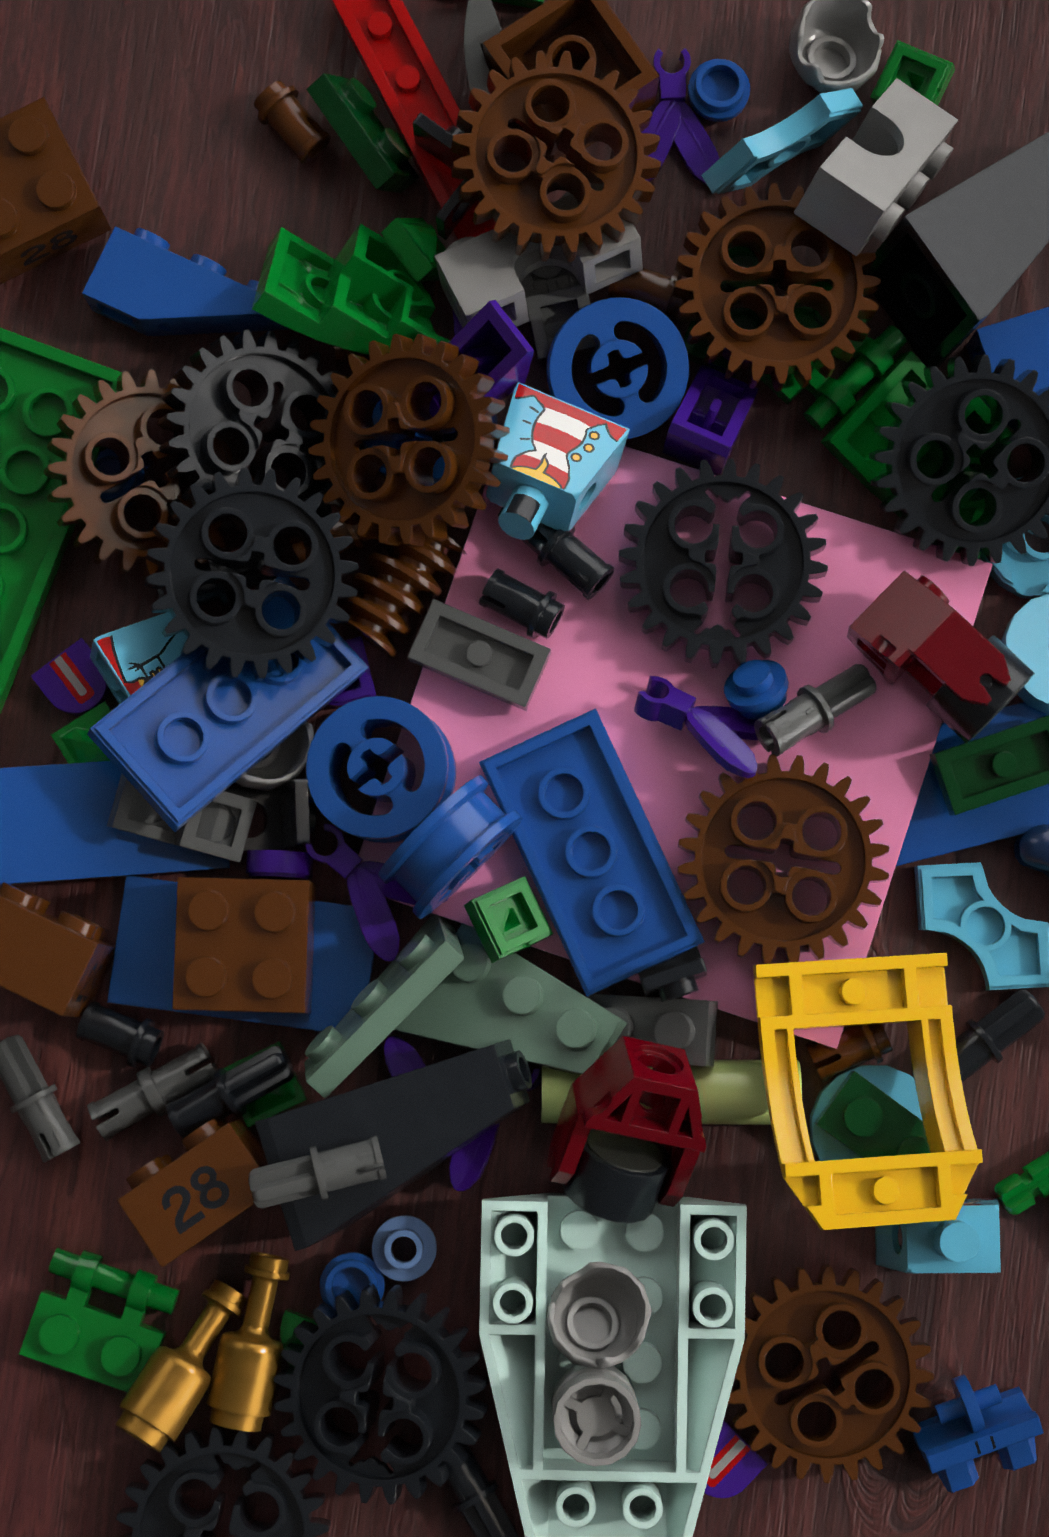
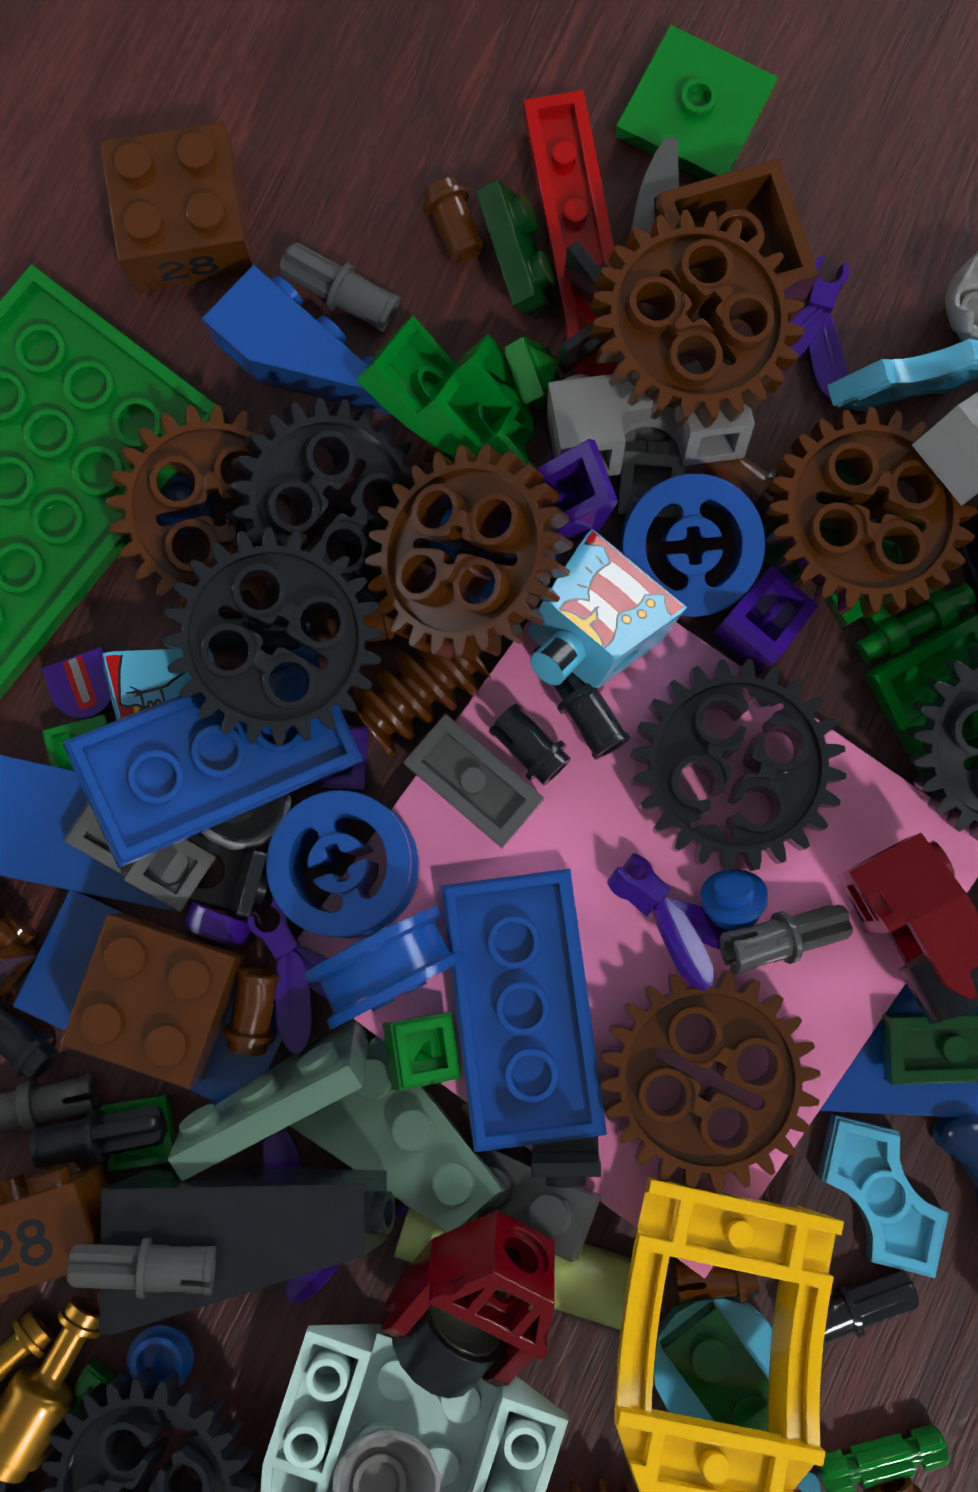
camera: 15 degrees right, 0 degrees up
(200, 219) = (339, 286): none -> dark grey axle
(338, 932) = (252, 1012): none -> reddish brown pin
(404, 1227) = (231, 1320): medium blue plate -> none
(718, 90) = (866, 311): blue plate -> none

